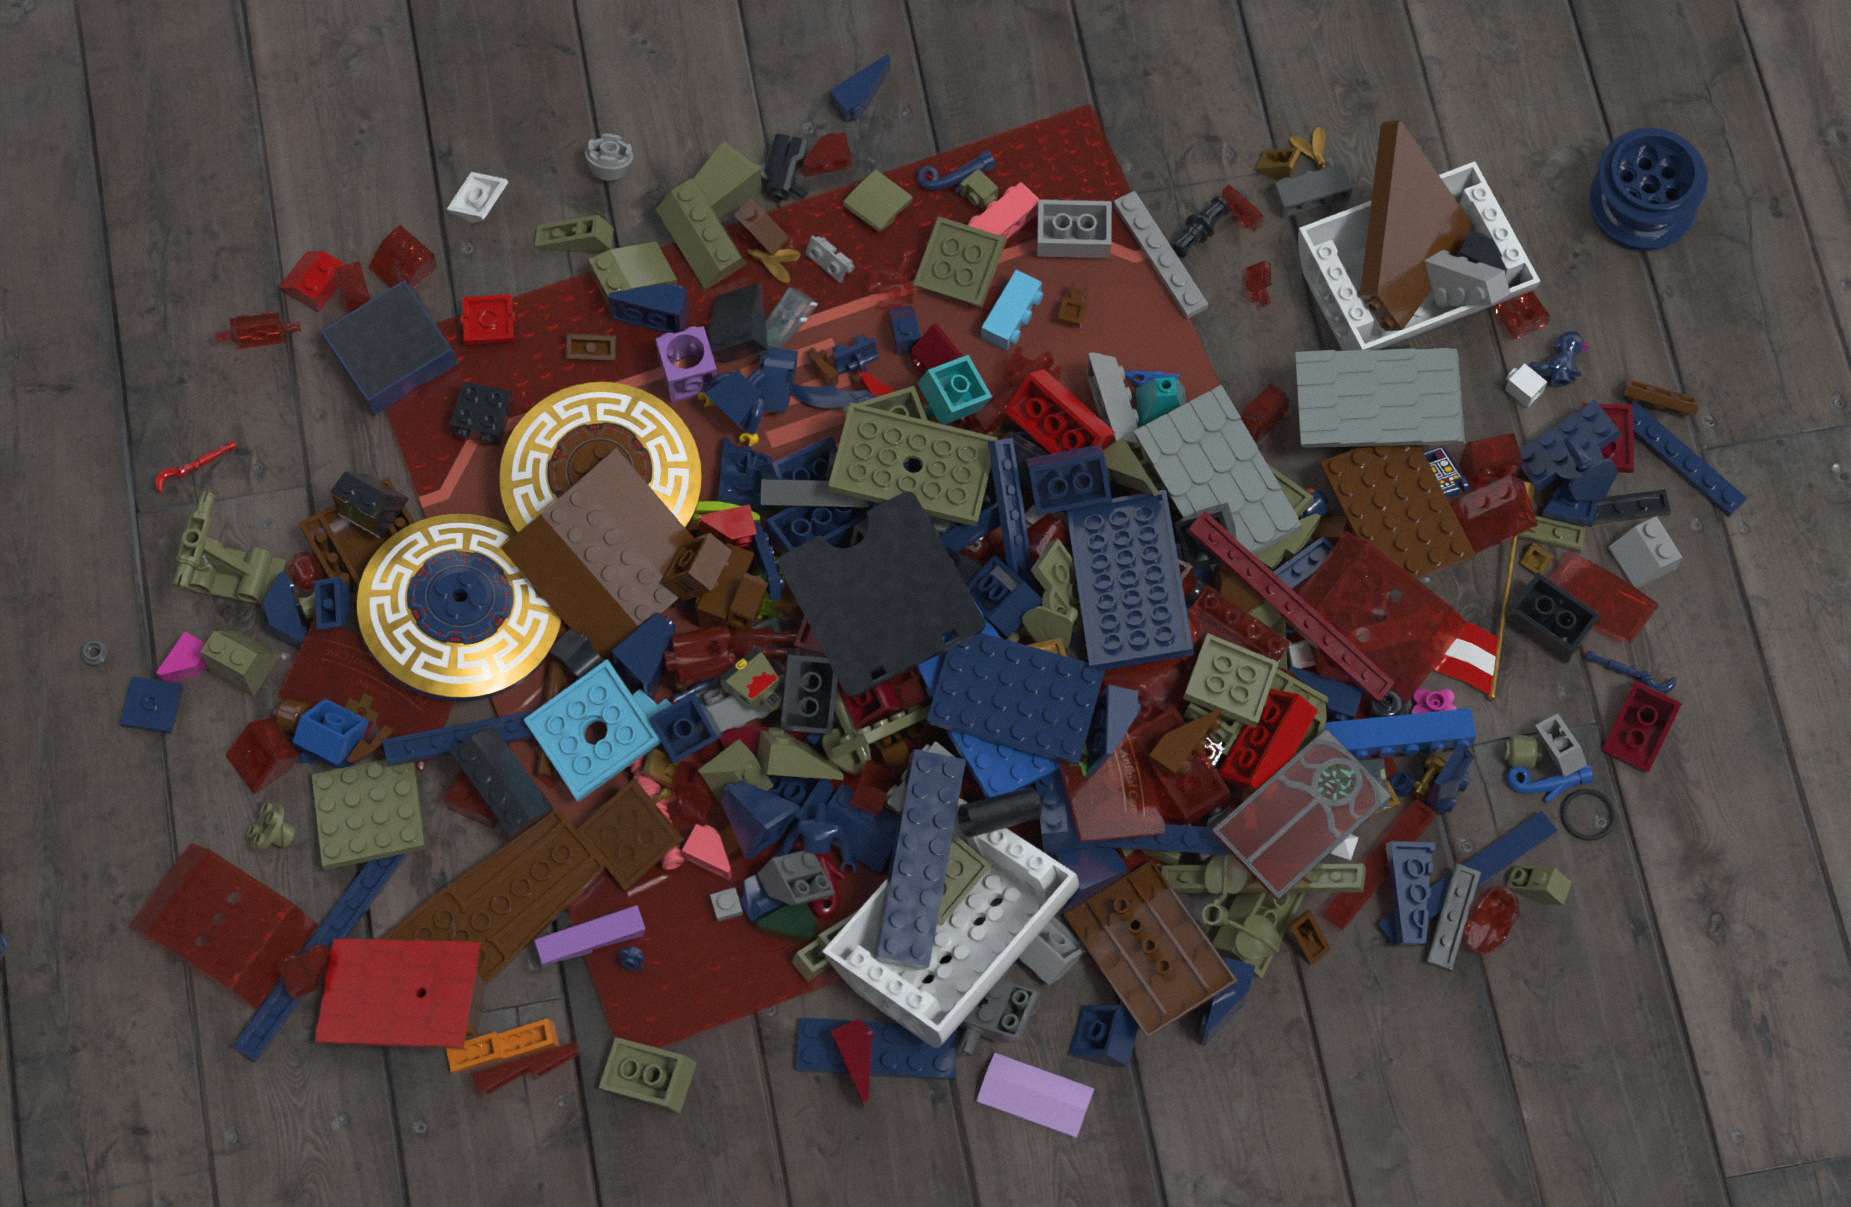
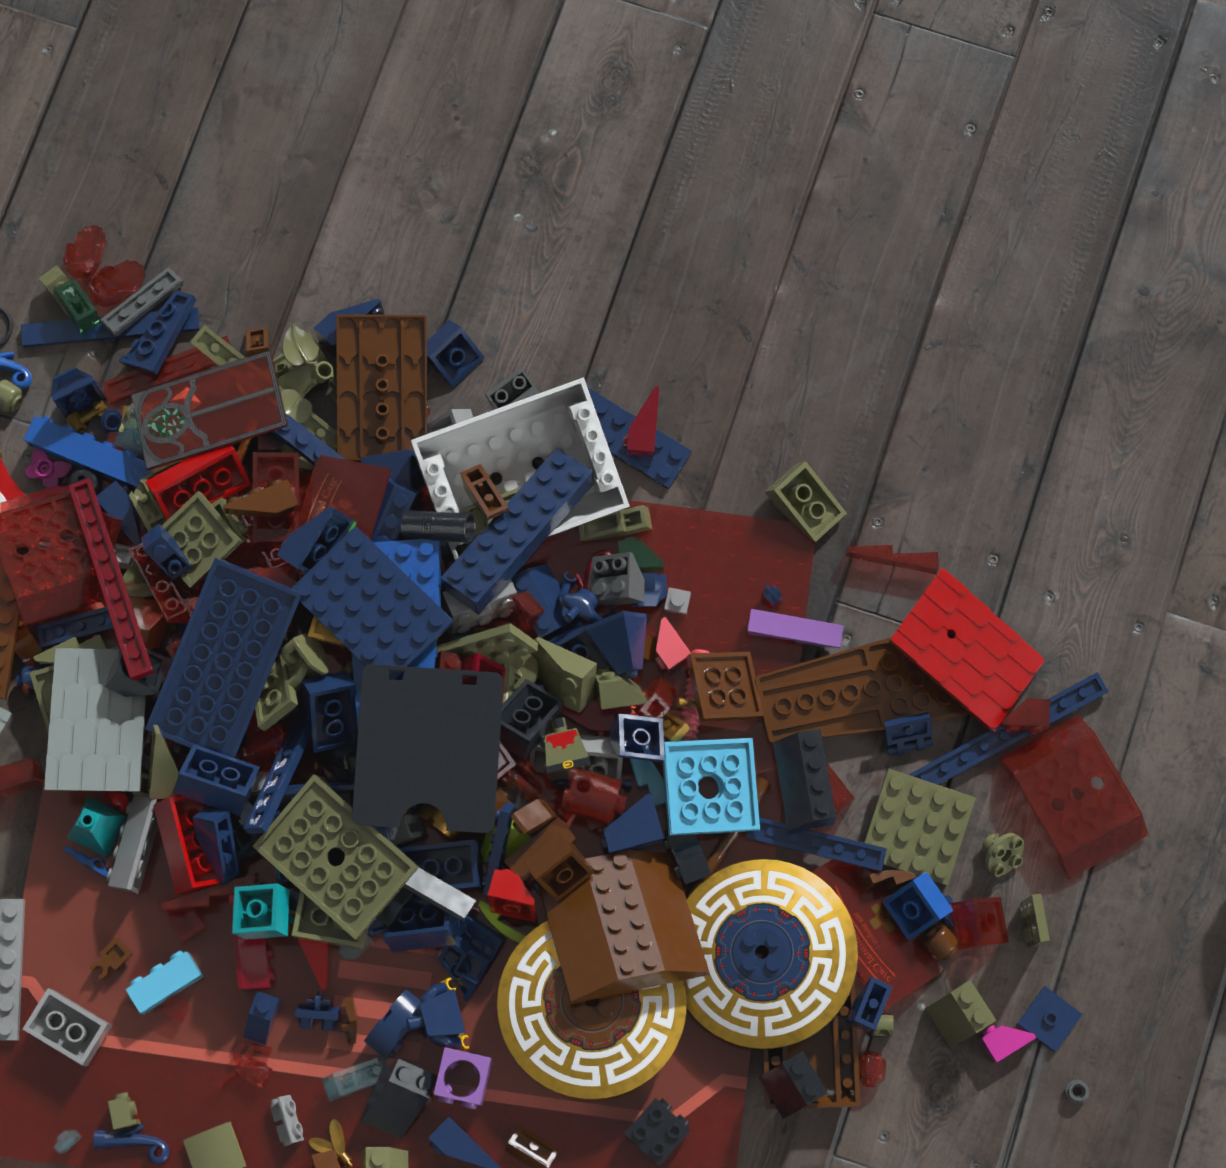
camera: 150 degrees left, 10 degrees up
(206, 770) = (1035, 920): none -> olive plate
(220, 571) = (937, 1104): olive plate -> none
(283, 614) = (908, 1038): dark blue slope -> none
(422, 894) = (907, 729): none -> dark blue plate
(504, 1046) = (890, 583): orange slope -> none
(830, 396) = (357, 981): dark blue sword -> none
(960, 261) = (181, 1047): olive plate -> none
(974, 875) = (483, 492): none -> reddish brown slope
(1008, 213) = (119, 1075): coral brick -> none
(1015, 145) = (66, 1140): none -> clear light blue plate
(1034, 430) = (216, 838): none -> dark blue slope
(1035, 1095) = (526, 341): lavender slope -> none
(1252, 649) = (165, 552): none -> dark blue slope
(1511, 868) = (78, 306): none -> clear green slope
(1544, 934) = (86, 253): none -> clear red hair

